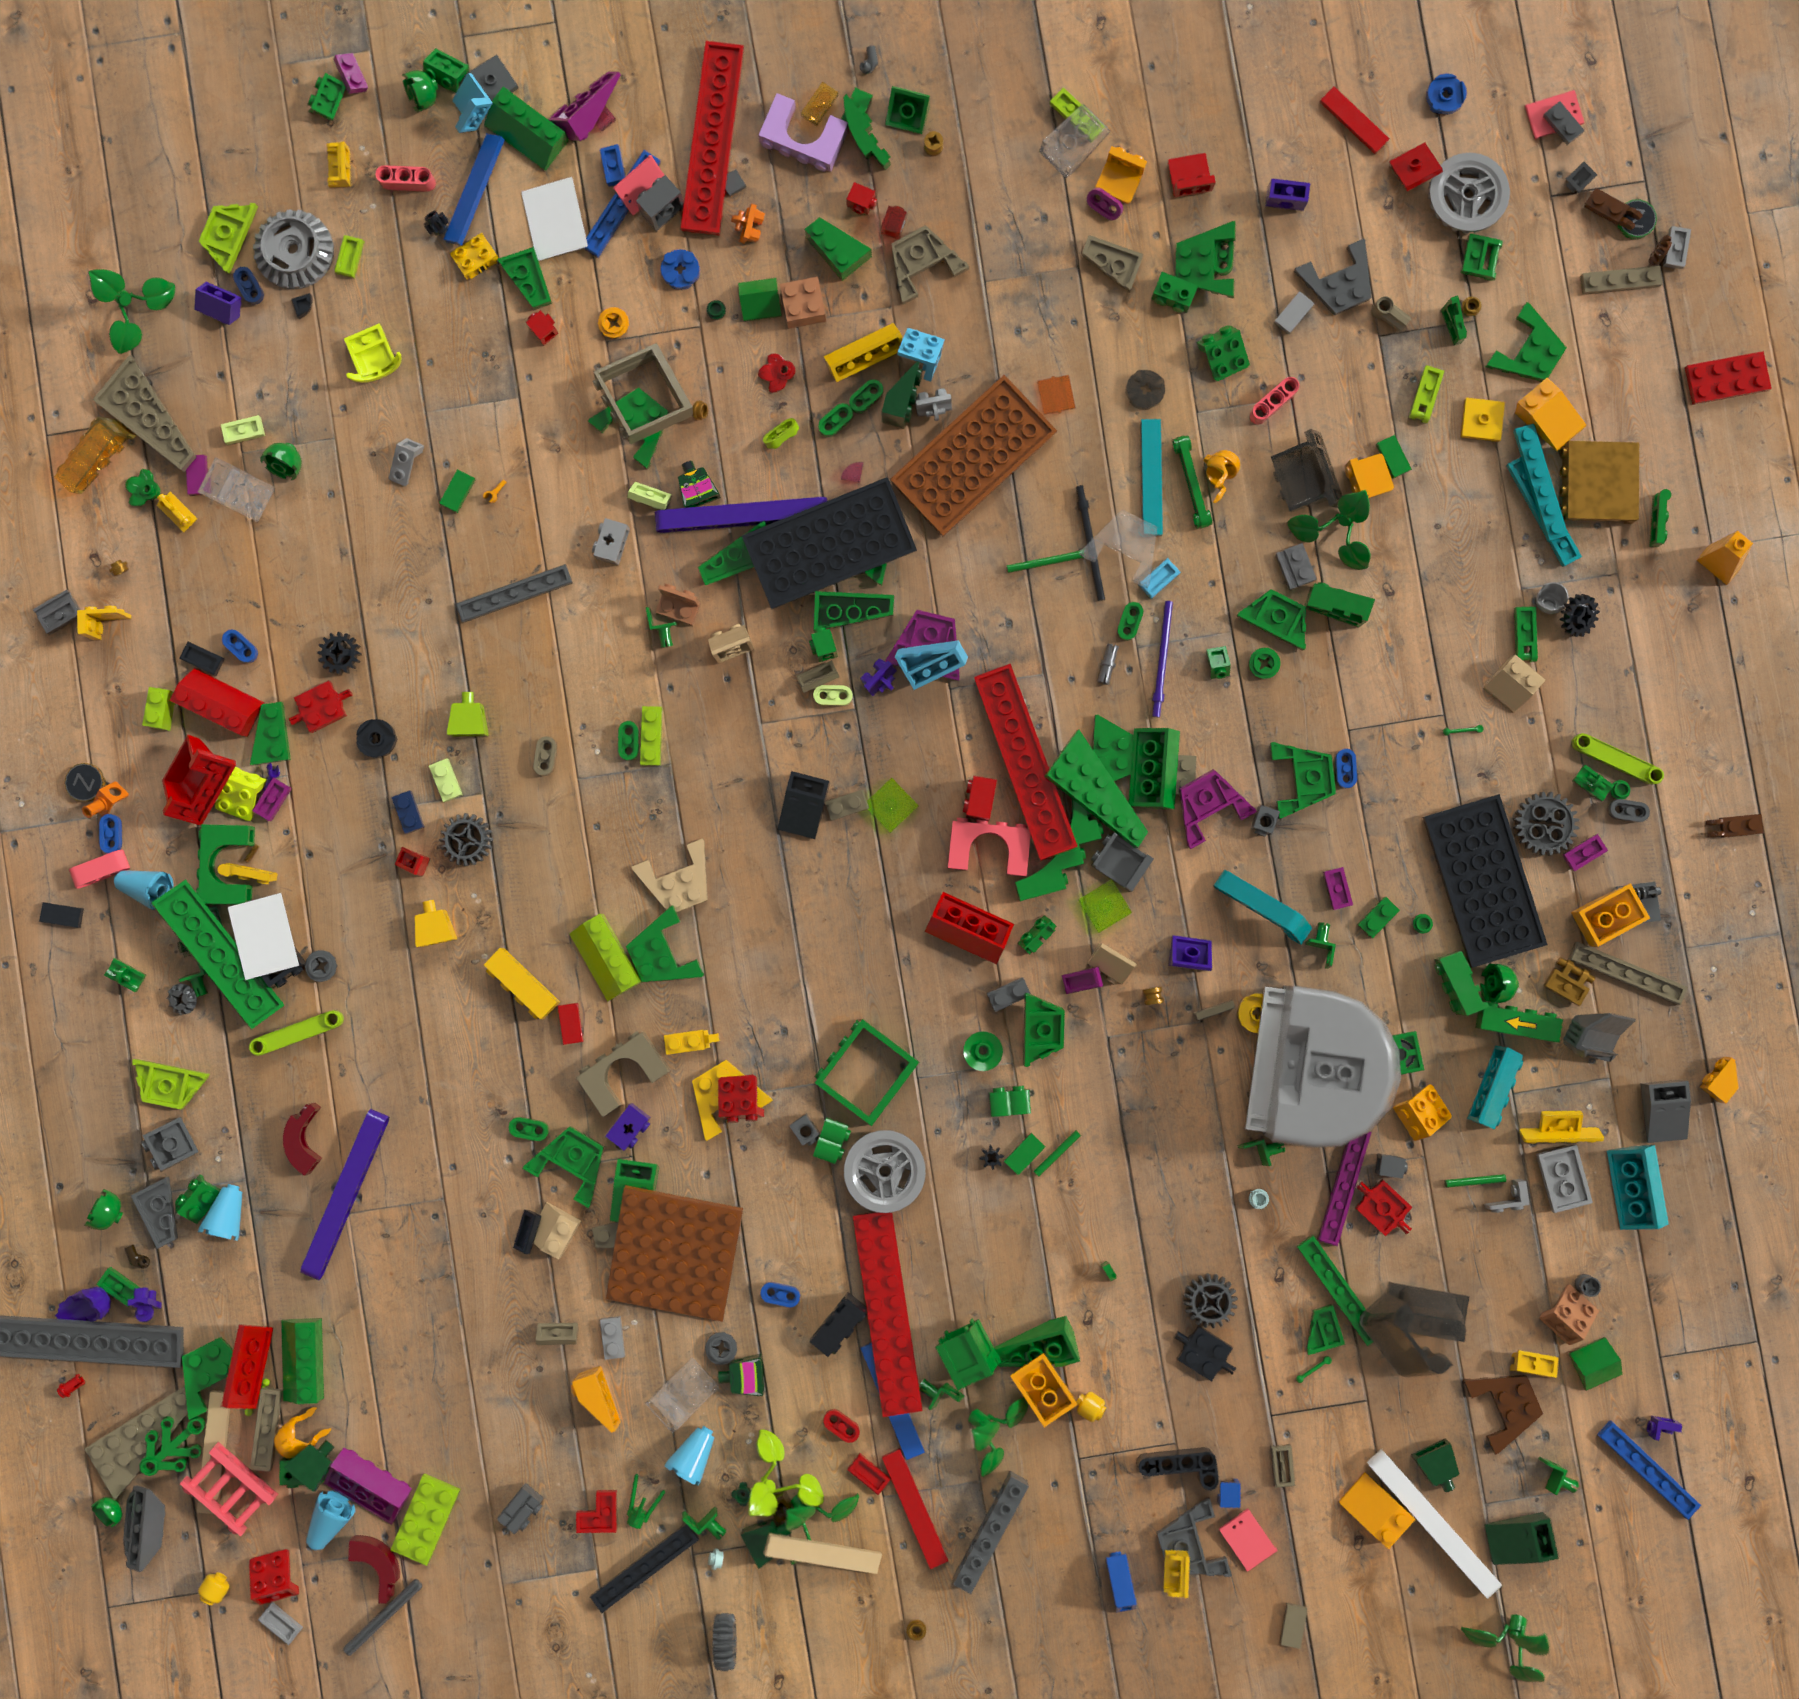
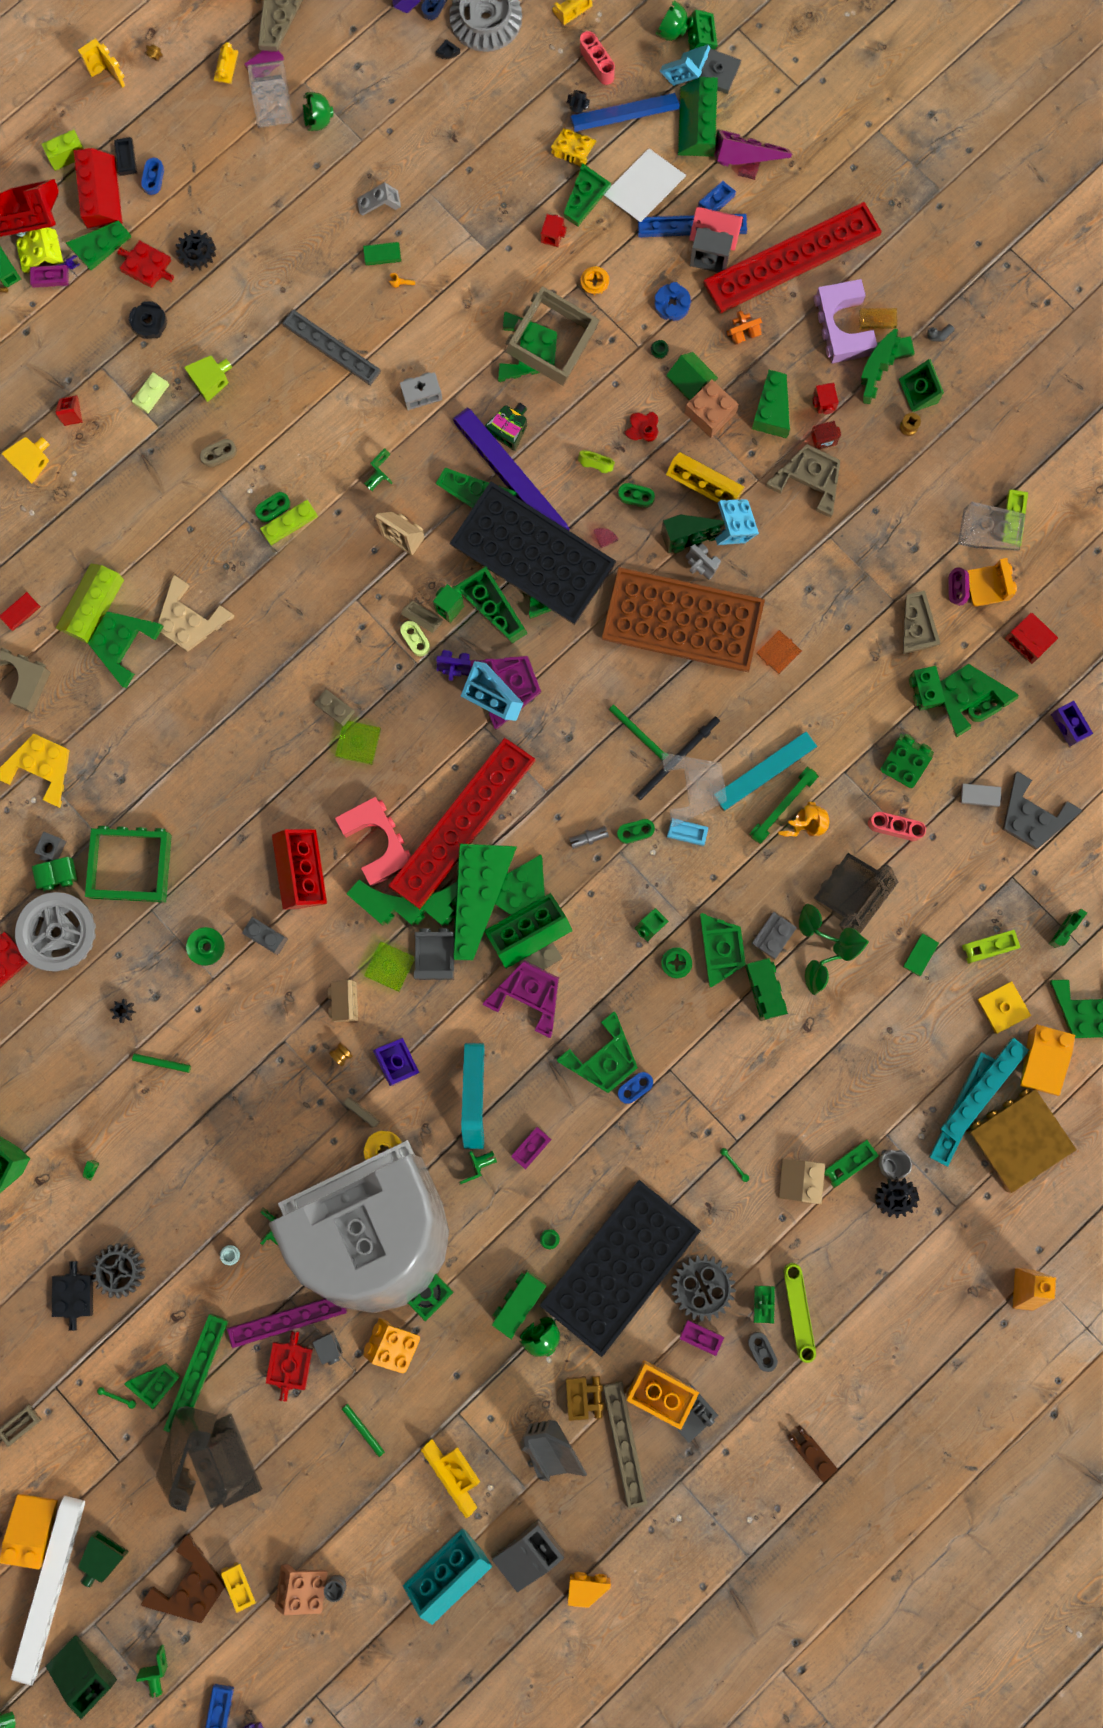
camera: 55 degrees right, 5 degrees down
(57, 612) = (87, 29): flat silver plate -> none
(142, 488) = (227, 29): green plate -> none
(242, 430) = (320, 70): yellowish green plate -> none
(349, 256) = (508, 58): lime tile -> none
(371, 355) = (442, 122): neon yellow piece -> none
(408, 812) = (106, 381): dark blue plate -> none
(469, 833) = (102, 435): dark grey gear -> none
(521, 983) = (25, 552): yellow brick -> none
(649, 496) = (477, 395): yellowish green plate -> none
(677, 605) = (405, 473): nougat bracket -> none
(689, 1041) = (64, 711): yellow hinge -> none
(700, 410) = (571, 388): pearl gold plate -> none
(734, 183) = (769, 297): dark grey tile -> none
(738, 1099) = (39, 777): red bracket -> none
(803, 805) = (311, 672): black slope -> none
(865, 396) = (672, 504): green plate -> none
(980, 798) = (407, 806): red brick -> none
(1009, 1101) = (177, 995): green brick -> none
(1024, 1153) = (144, 1036): green tile -> none
(1030, 940) = (321, 925): green hinge -> none
(1042, 1028) = (254, 981): green wing -> none
(1082, 980) = (315, 987): magenta tile -> none
(1150, 399) = (826, 727): clear smoke plate -> none
(1158, 696) = (590, 895): dark purple bar -> none
(1270, 814) = (552, 1042): dark grey brick -> none
(1369, 475) = (889, 945): light orange bracket -> none
(1378, 917) = (530, 1198): green plate -> none
(1393, 315) = (1036, 875): dark tan piece -> none
(1473, 301) = (1095, 932): pearl gold plate -> none
(1495, 1087) = (450, 1394): teal slope -> none
(1519, 1191) = (364, 1478): light grey bracket -> none
(1520, 1023) = (519, 1378): green brick -> none
(1564, 1178) = (413, 1506): light grey plate -> none
(1596, 1363) = (274, 1641): green slope -> none
(1620, 790) = (775, 1332): green plate -> none
(1659, 517) = (1027, 1211): green plate -> none

